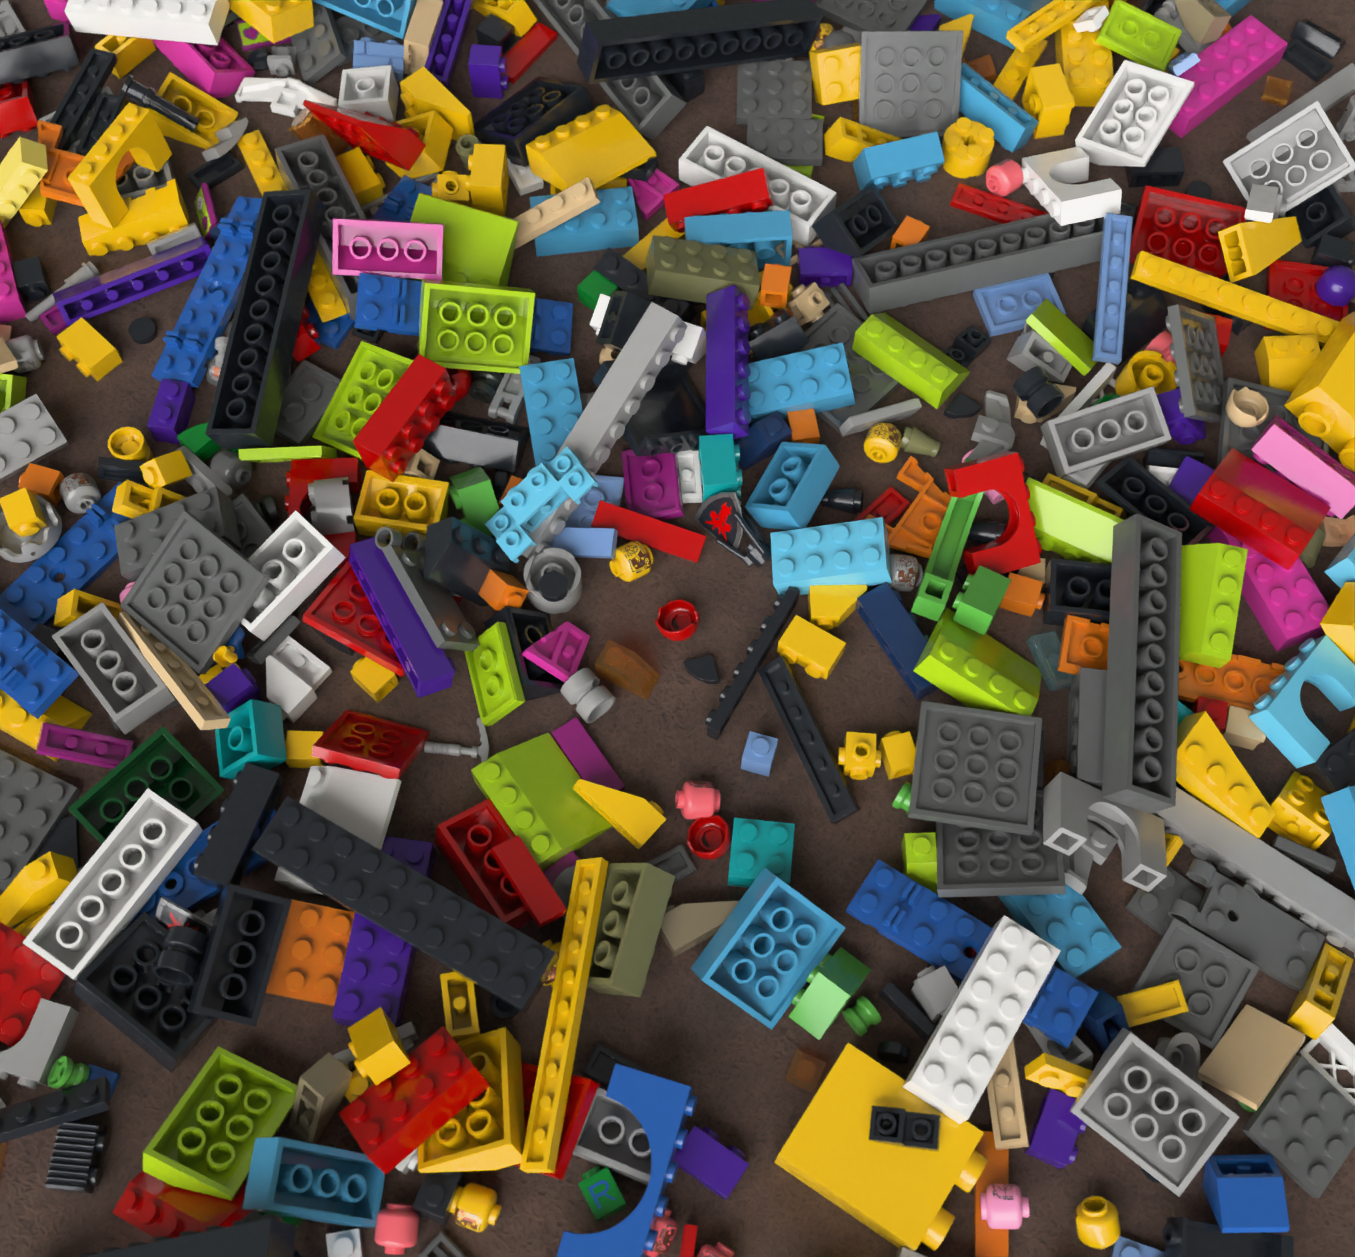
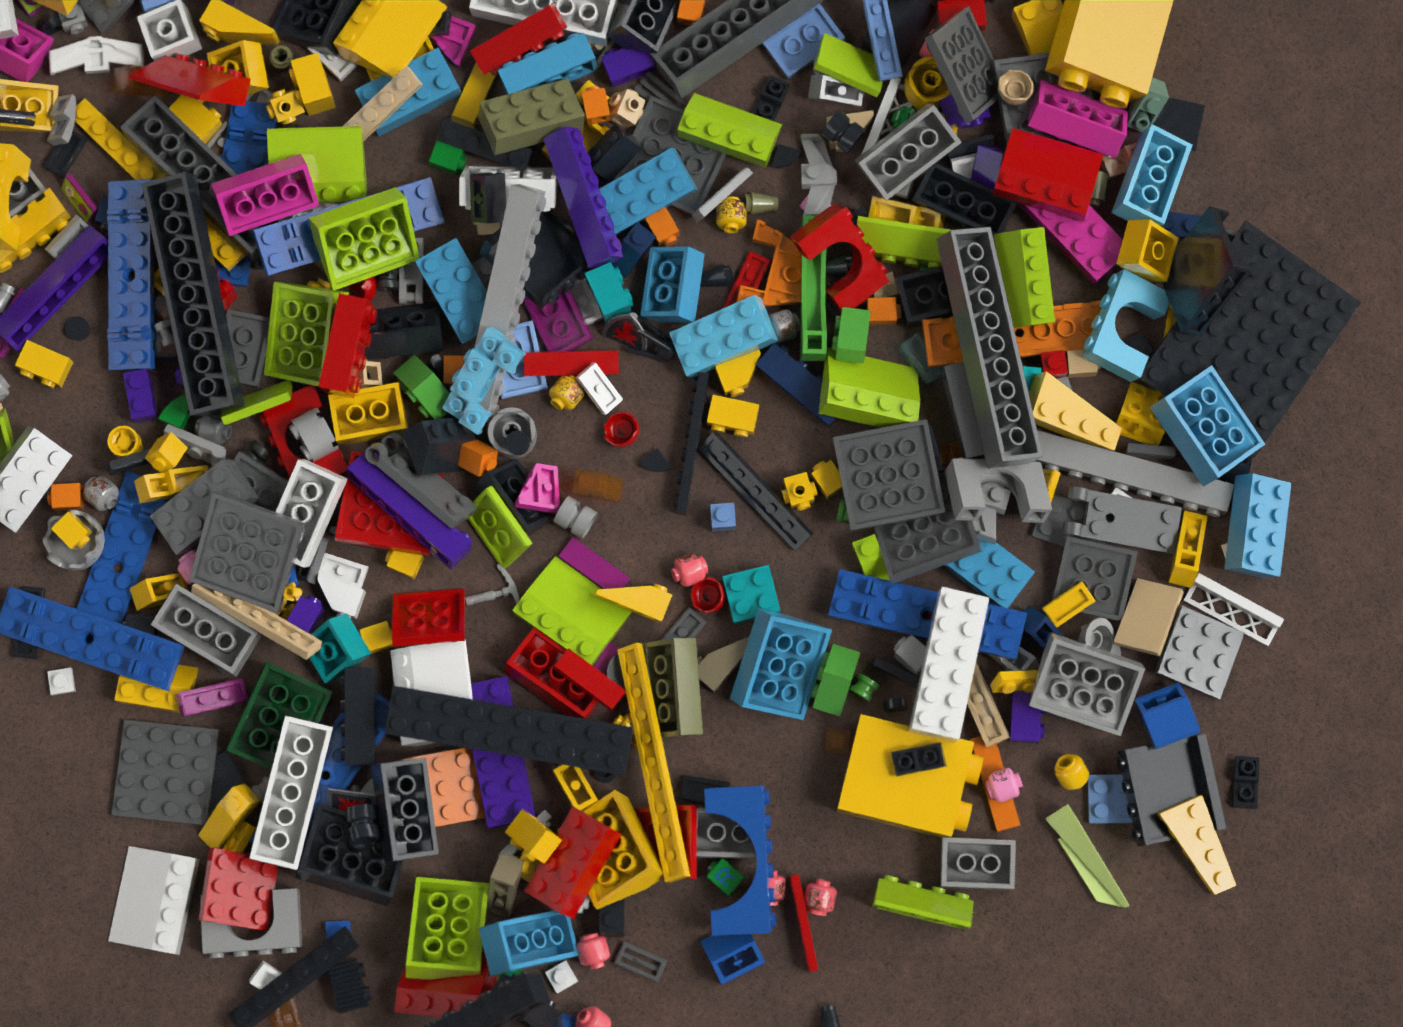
camera: 15 degrees left, 15 degrees up
(67, 1074) = (315, 934): bright green wheel -> none
(475, 1207) = (641, 917): yellow head -> none
(587, 542) = (525, 392): medium blue tile -> none
(669, 567) = (599, 388): none -> white plate
(711, 1161) = (793, 828): dark purple brick -> none

